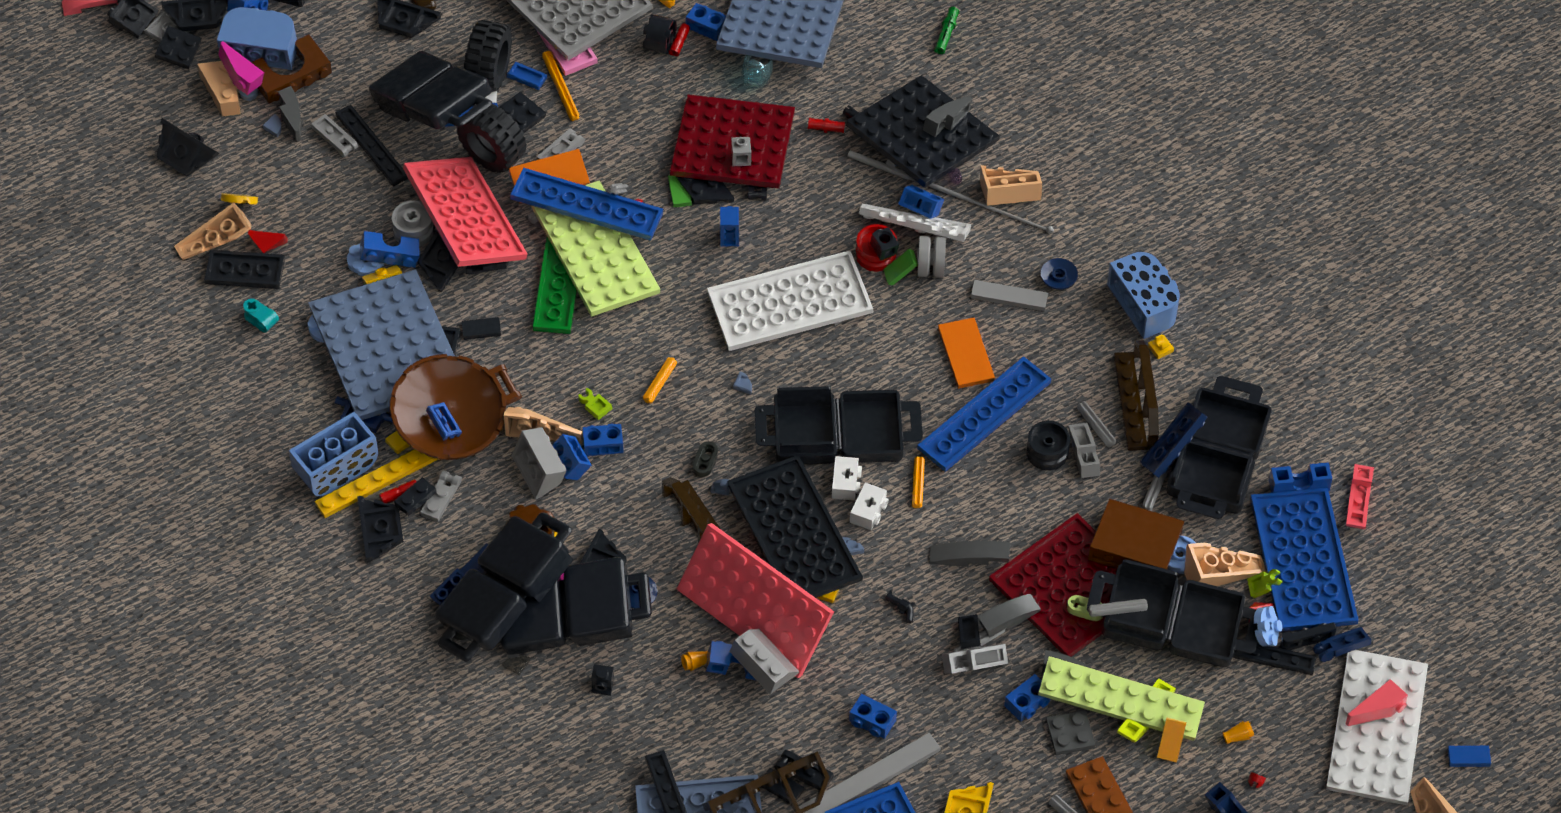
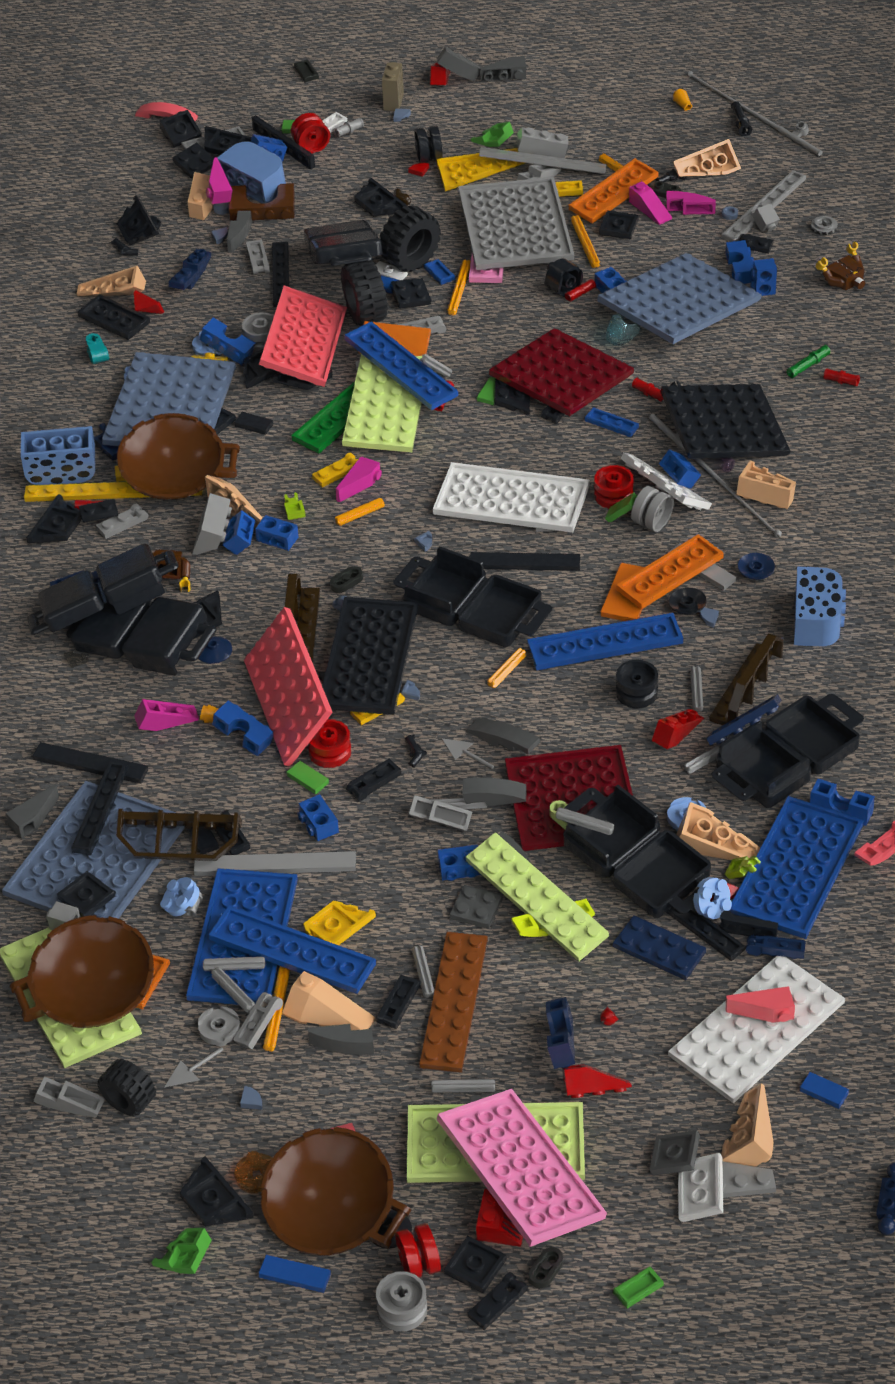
camera: 35 degrees right, 10 degrees down
(187, 184) = (123, 248): none -> black piece
(236, 198) = (146, 267): yellow tile -> none
(281, 180) = (192, 270): none -> dark blue slope
(441, 421) = (160, 476): blue tile -> none
(602, 345) = (334, 471): none -> yellow plate
(602, 679) = (127, 695): black brick -> none
(614, 765) = (86, 761): none -> black tile
(634, 343) = (359, 478): none -> dark pink slope
(652, 682) = (162, 715): none -> dark pink slope
(729, 226) = (503, 425): blue brick -> none
(741, 151) = (554, 374): light grey brick -> none
(763, 660) = (259, 731): light grey slope -> none
(816, 176) = (611, 422): none -> blue tile
(828, 680) = (307, 777): none -> bright green tile
(833, 642) = (330, 745): none -> red wheel
(845, 478) = (446, 638): white brick -> none
(851, 362) = (528, 561): none -> black tile
(868, 506) = (448, 666): white brick -> none
(886, 249) = (614, 479): black brick -> none
(890, 652) = (373, 779): none -> black plate
(936, 583) = (457, 748): none -> light grey piece
(947, 116) = (750, 414): dark grey slope -> none
(969, 631) = (450, 793): black tile -> none
(988, 35) = (841, 377): none -> red pin
(992, 315) = (669, 571): none -> orange plate
(1026, 331) = (687, 601): none -> black dish
(1053, 344) = (709, 616): none -> sand blue tile
(1084, 450) = (668, 700): light grey slope -> none
(1110, 472) = (675, 728): none -> red slope
(1134, 536) = (654, 780): reddish brown panel -> none
(1160, 346) = (803, 655): yellow tile -> none
(1171, 739) = (555, 948): light orange tile -> none
(1239, 732) = (625, 973): light orange cone -> none
(1248, 693) = (659, 947): none -> dark blue plate

